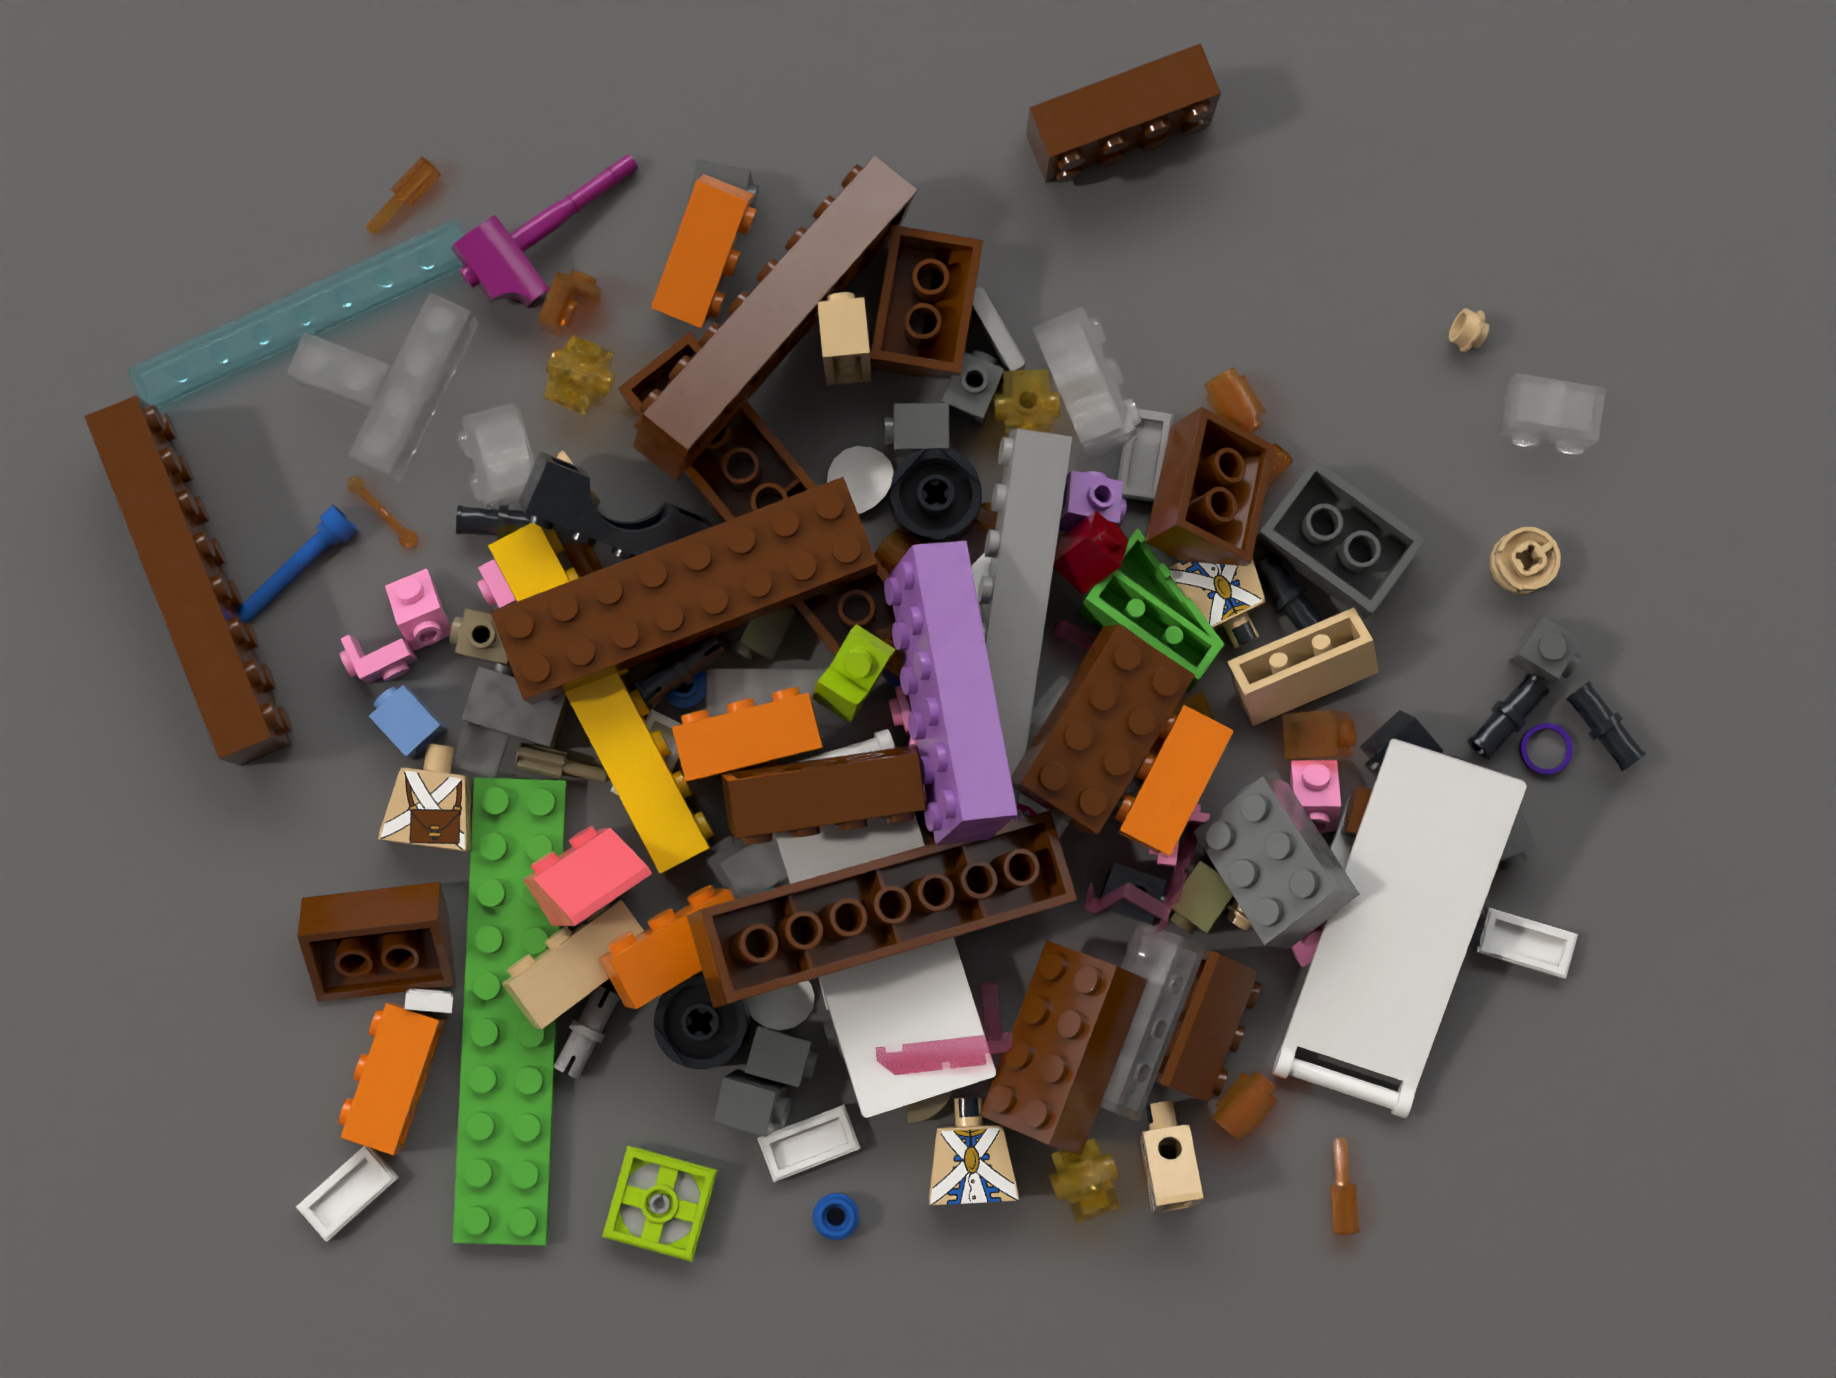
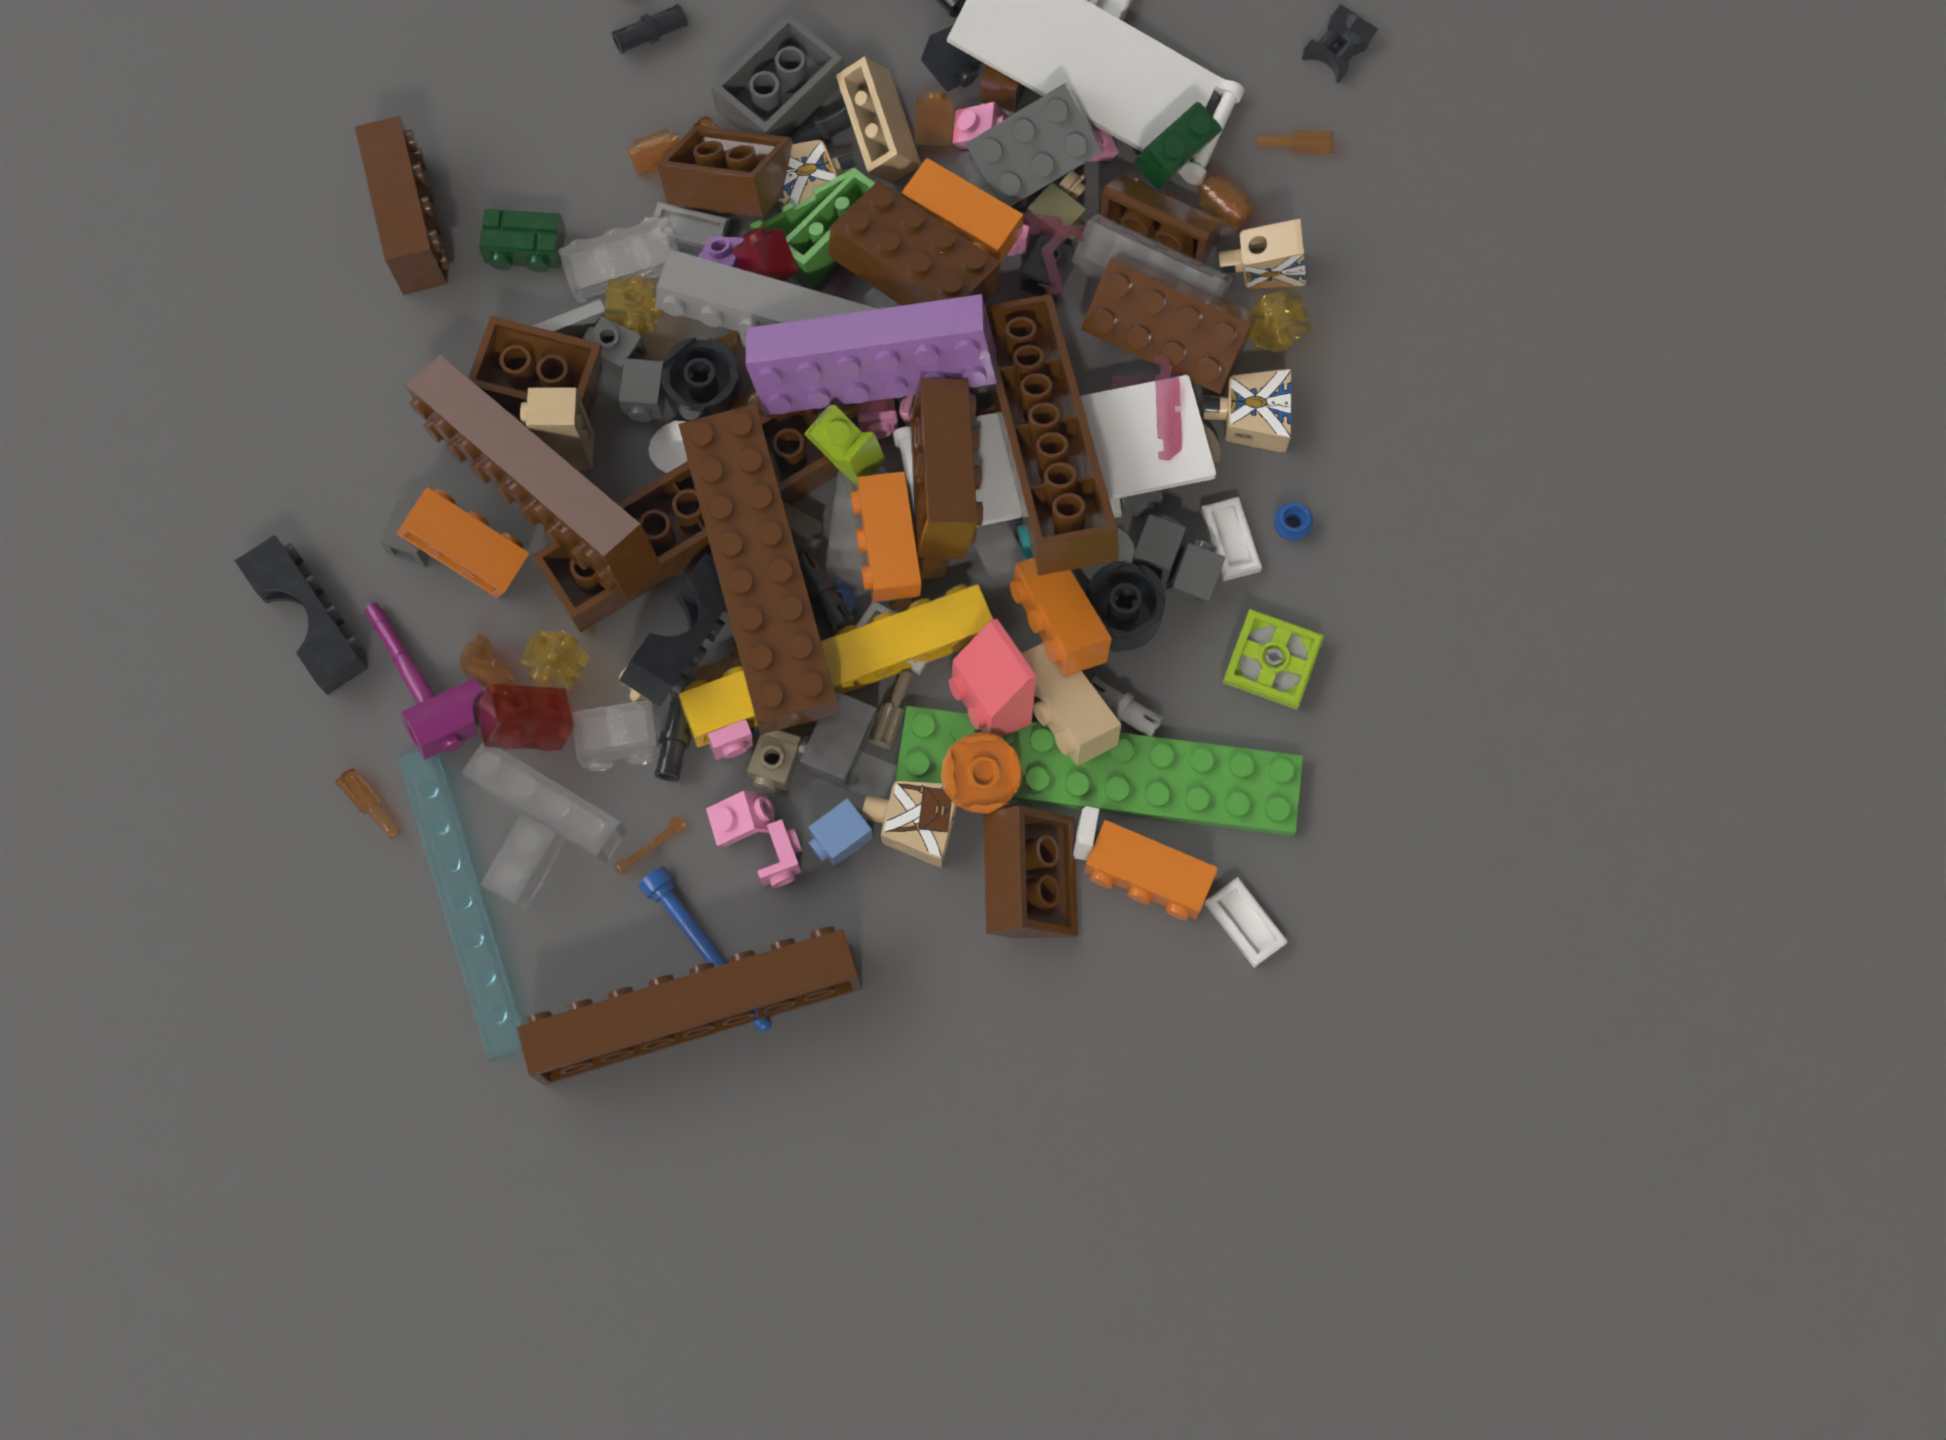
camera: 85 degrees left, 10 degrees down
(479, 873) = (981, 773): none -> orange tile
(500, 353) = (525, 717): none -> clear red brick
(573, 123) = (326, 650): none -> black arch
(1102, 261) = (521, 239): none -> dark green brick
(1301, 1039) = (1178, 145): none -> dark green brick
(1405, 372) = (649, 28): none -> black pin
(1506, 1246) = (1346, 30): none -> black piece

